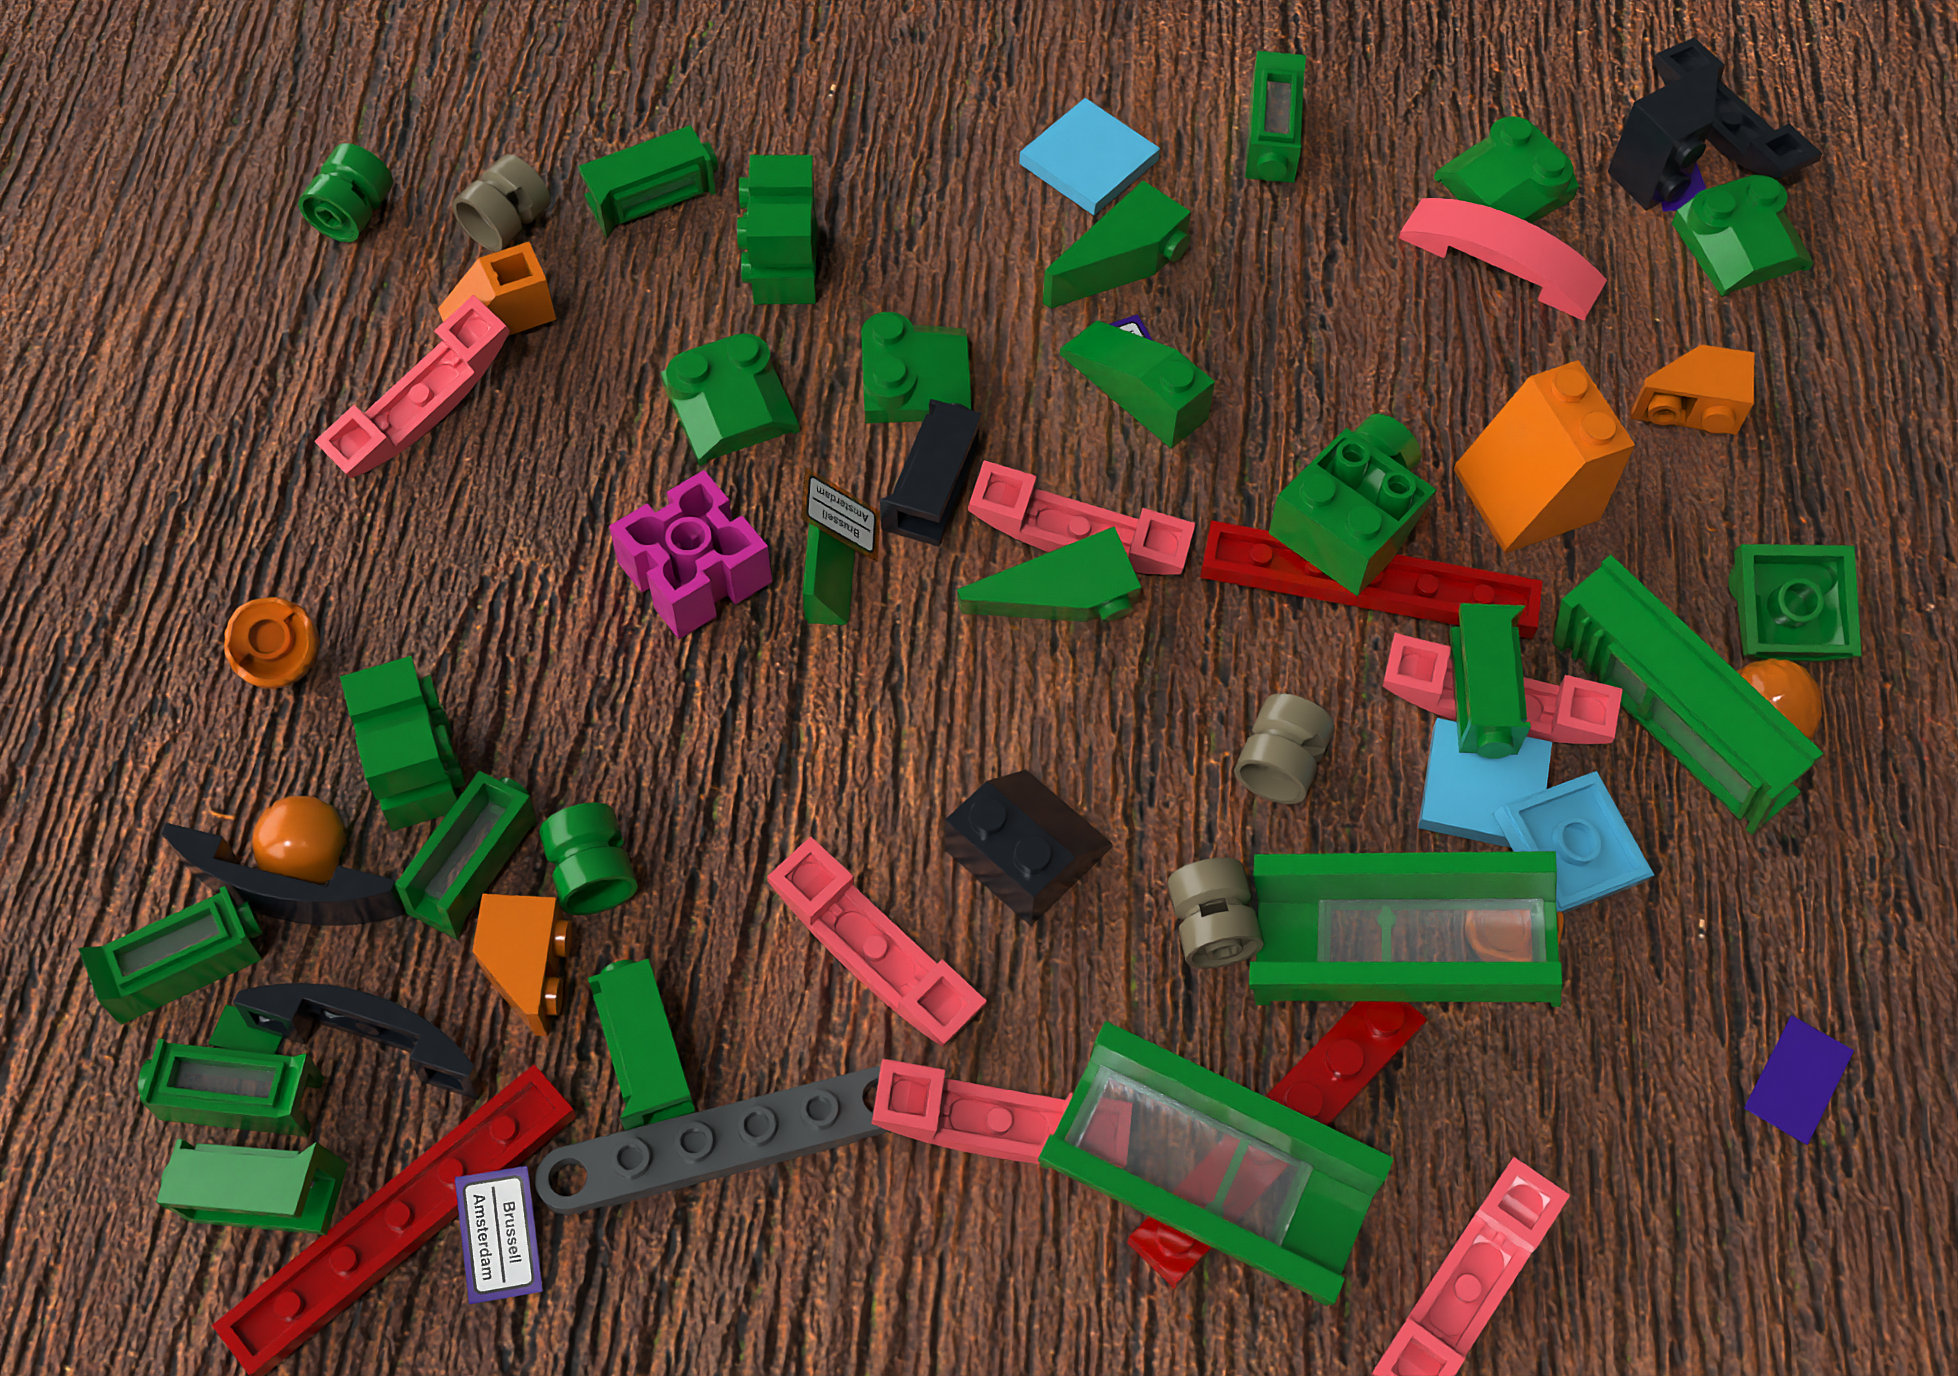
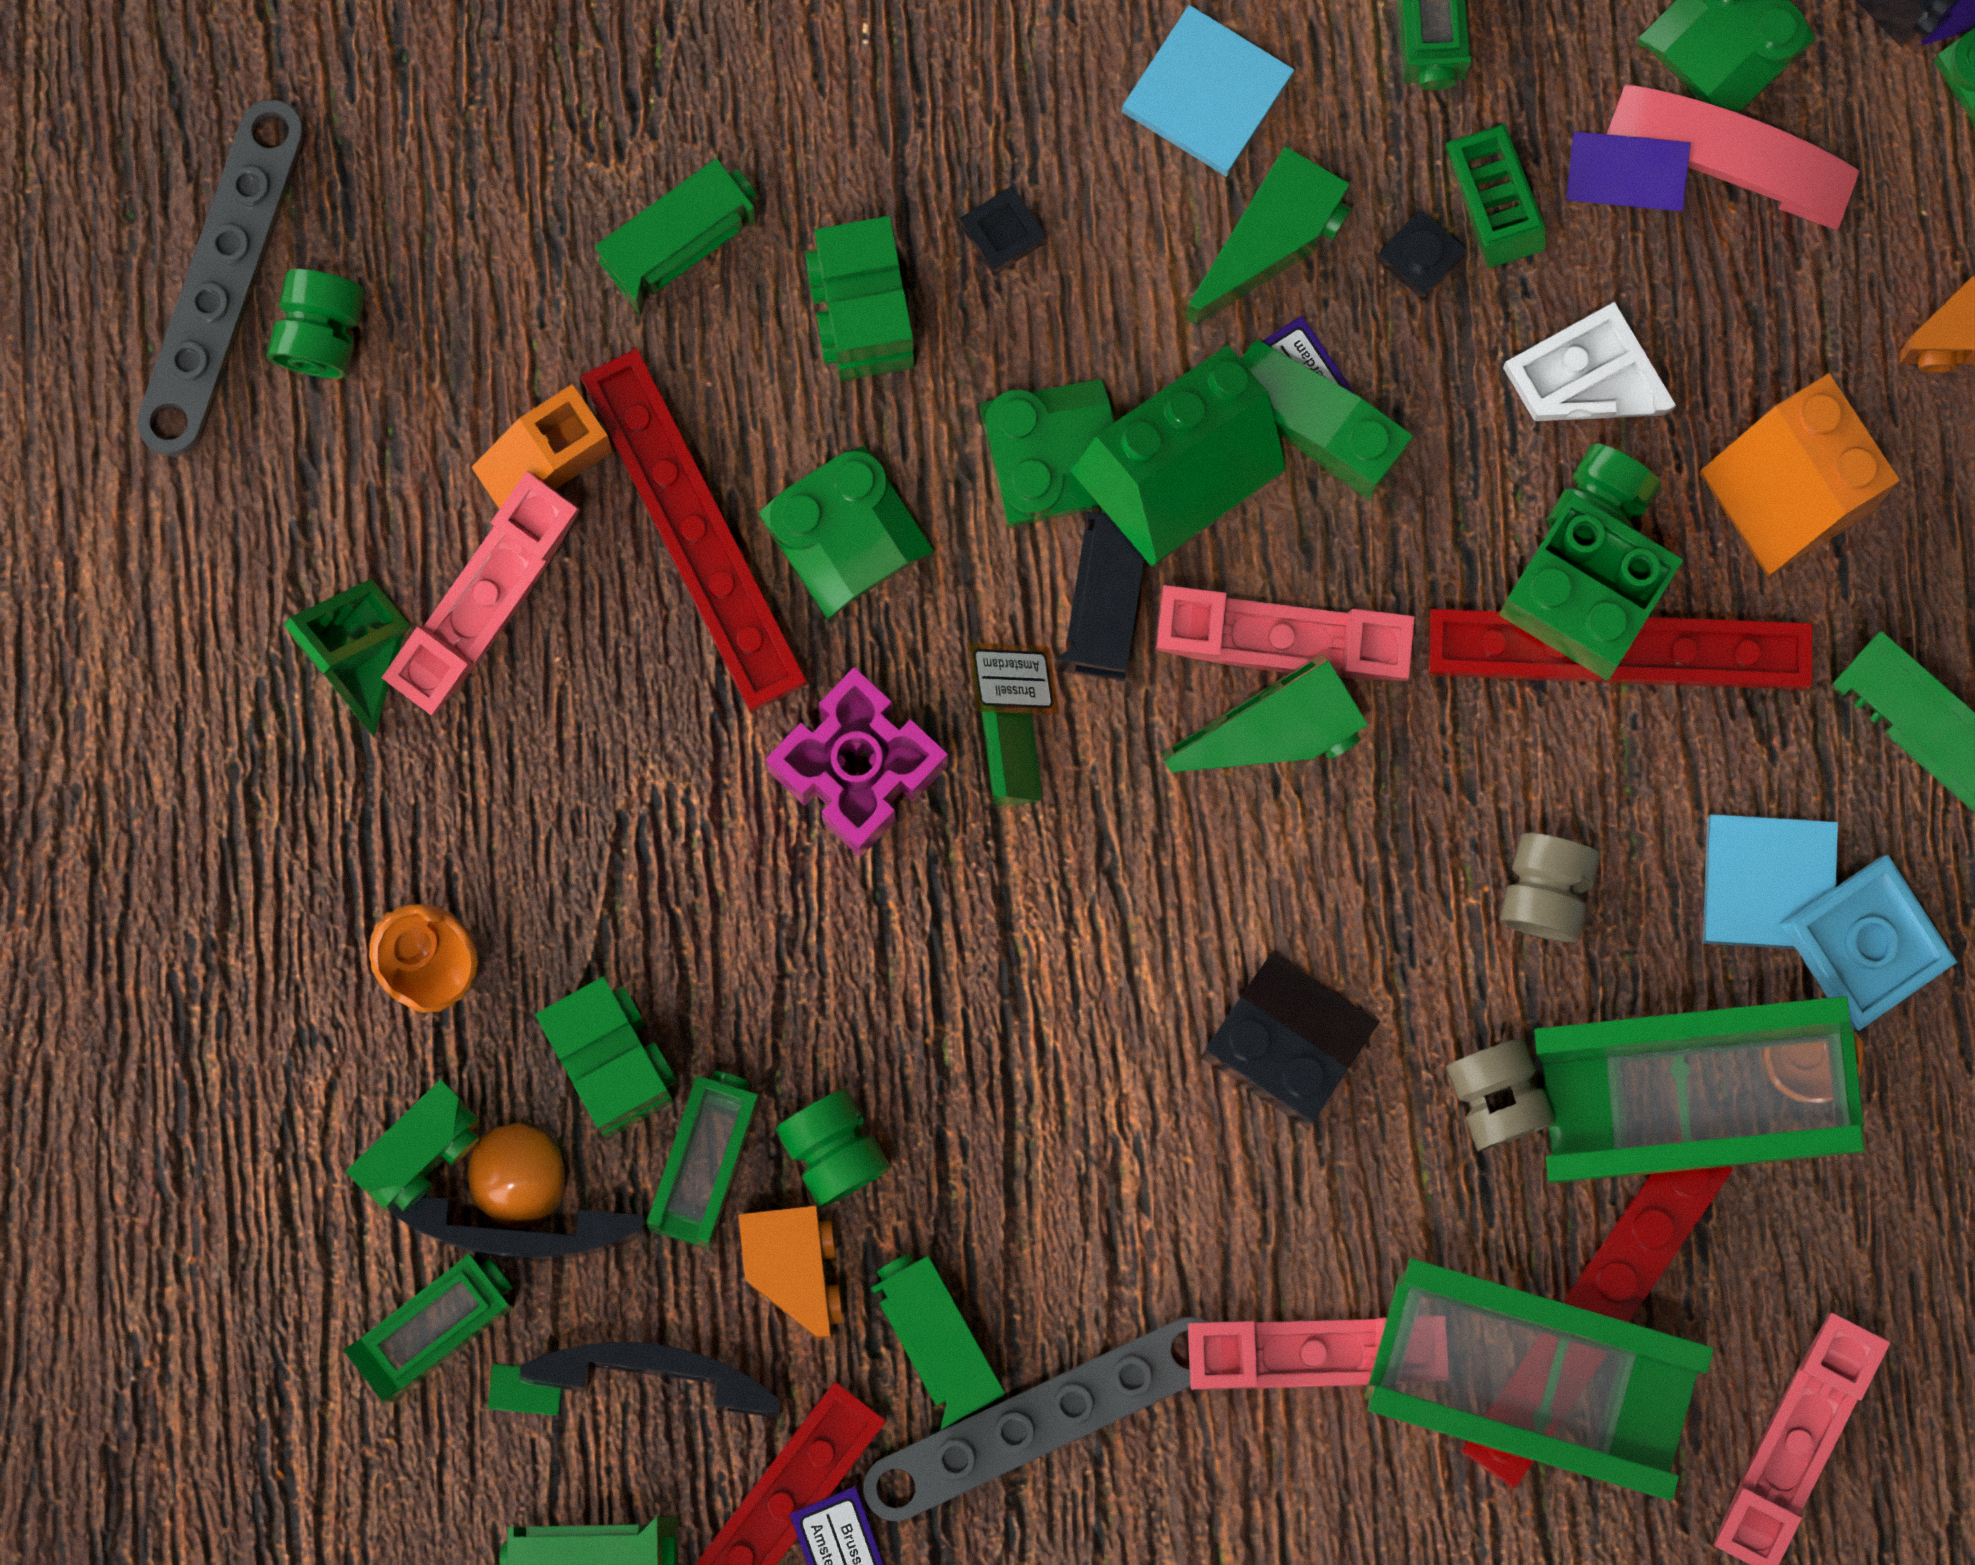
camera: 10 degrees left, 20 degrees up
(204, 782) = (401, 1159): none -> green slope
(228, 1088) = (532, 1458): green window -> none
(284, 167) = (221, 278): none -> dark grey plate
(294, 412) = (352, 645): none -> green slope
(501, 202) = (509, 305): dark tan wheel -> none
(605, 381) = (693, 531): none -> red plate
(872, 946) = (1153, 1189): coral slope -> none
(907, 216) = (1002, 230): none -> black plate
(1019, 368) = (1185, 456): none -> green slope
(1242, 284) = (1421, 254): none -> black plate
(1310, 260) = (1507, 233): none -> green slope
(1369, 379) = (1589, 373): none -> white wing
(1418, 248) = (1628, 171): none -> dark purple sticker
(1489, 680) = (1762, 771): green window -> none
(1567, 713) = (1777, 775): coral slope -> none

